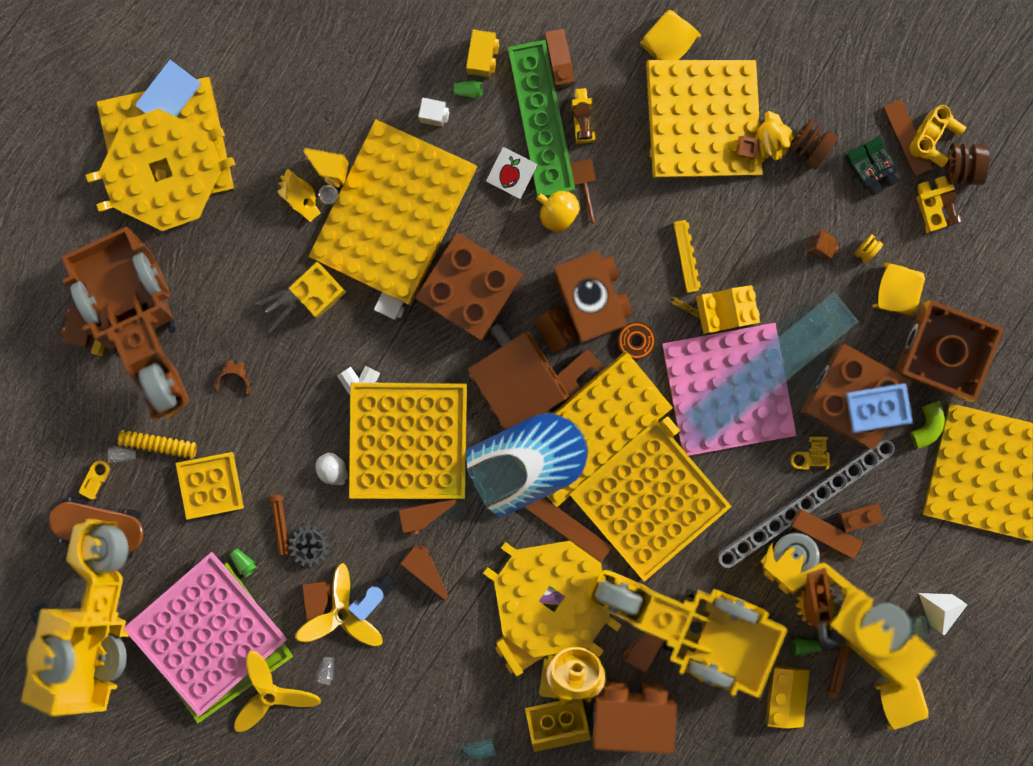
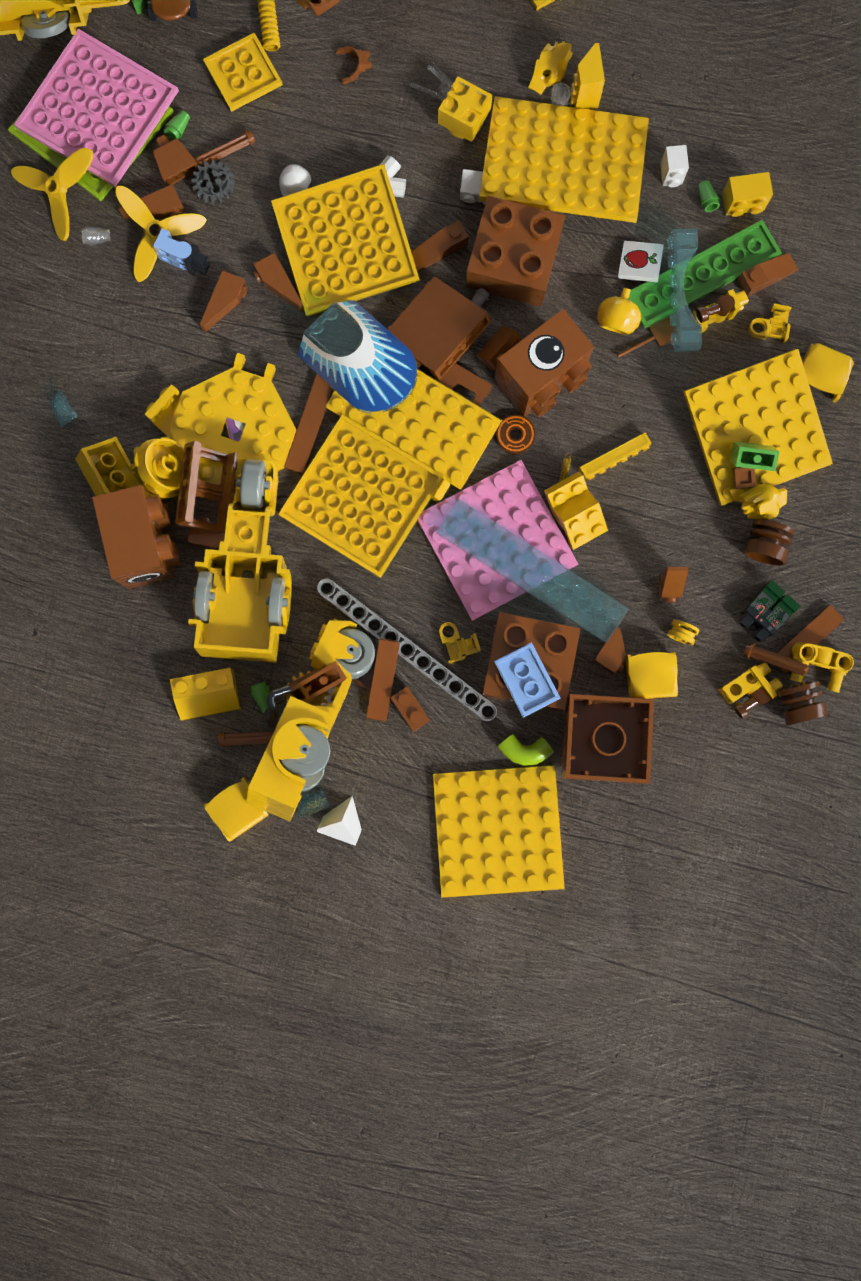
camera: 75 degrees right, 5 degrees down
(276, 577) = (173, 160): none -> dark orange torso
(438, 355) = (440, 245): none -> dark orange slope
(516, 131) = (687, 330): none -> clear light blue arch
(602, 652) = (193, 487): none -> dark orange window
(611, 66) = (777, 327): none -> yellow piece
(734, 133) = (754, 456): none -> bright green brick
(869, 319) = (612, 654): none -> dark orange slope
(920, 174) = (780, 661): none -> dark orange axle

